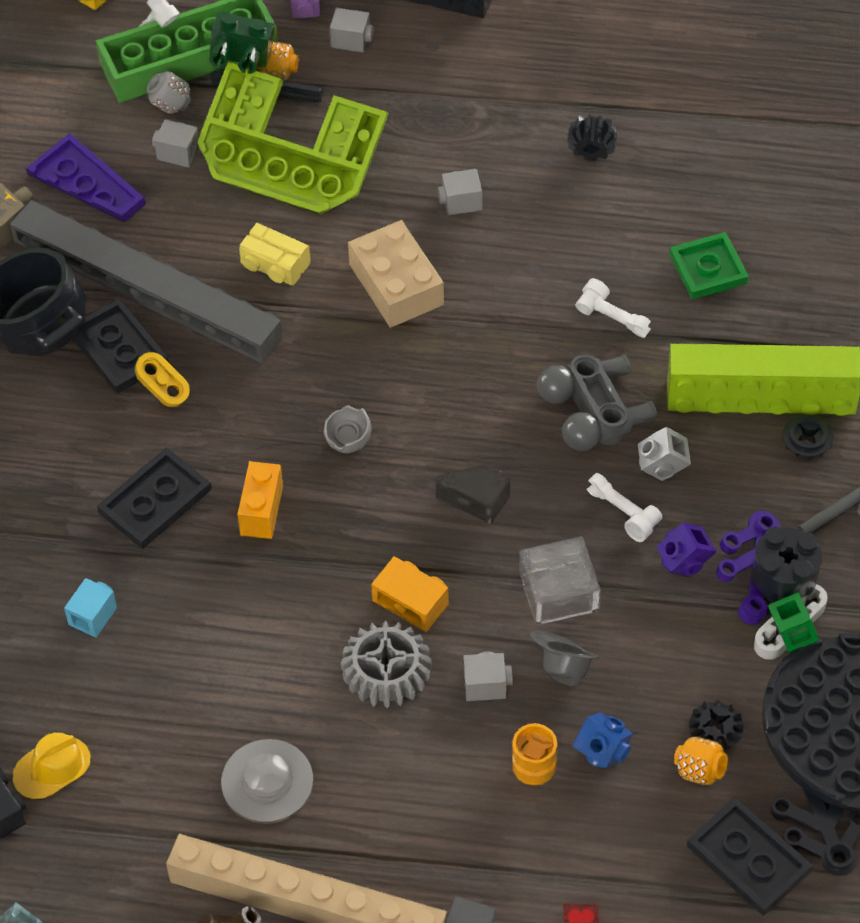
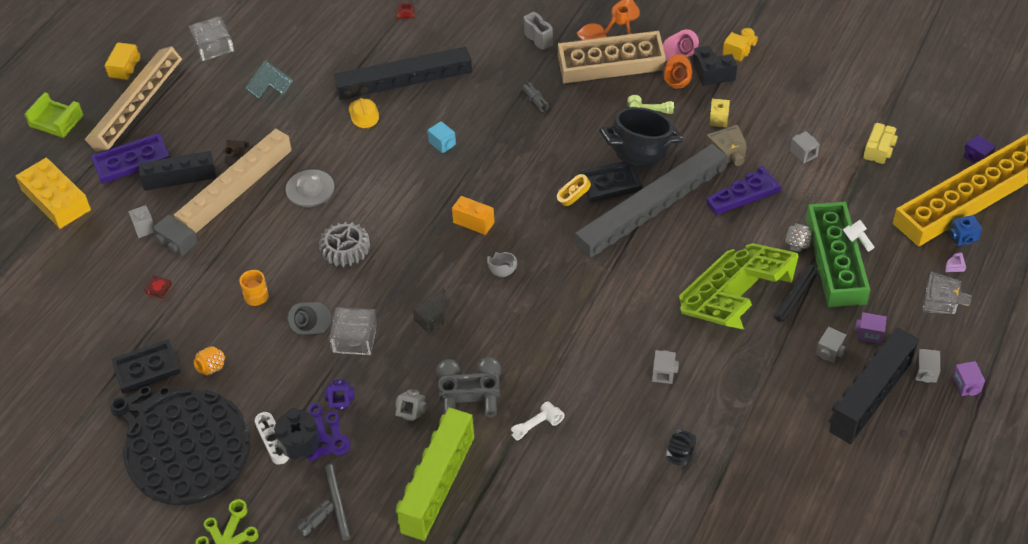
camera: 110 degrees right, 5 degrees down
(154, 498) = (499, 175): black plate -> none
(176, 143) = (757, 233): light grey brick -> none
(241, 41) = (811, 266): dark green brick -> none
(274, 254) = (648, 261): light yellow brick -> none
(281, 61) = (811, 297): light orange head -> none
(396, 273) = (608, 314): tan brick -> none
(410, 593) = (381, 264): light orange brick -> none
(486, 676) = (313, 283): light grey brick -> none
(603, 740) = (250, 317): blue brick -> none
(641, 521) = (376, 387): white brick -> none
(708, 265) = (550, 485): green plate -> none
(731, 727) = (236, 382): black gear -> none
(793, 622) = (260, 424): green brick -> none
(808, 425) = (384, 489): black gear -> none

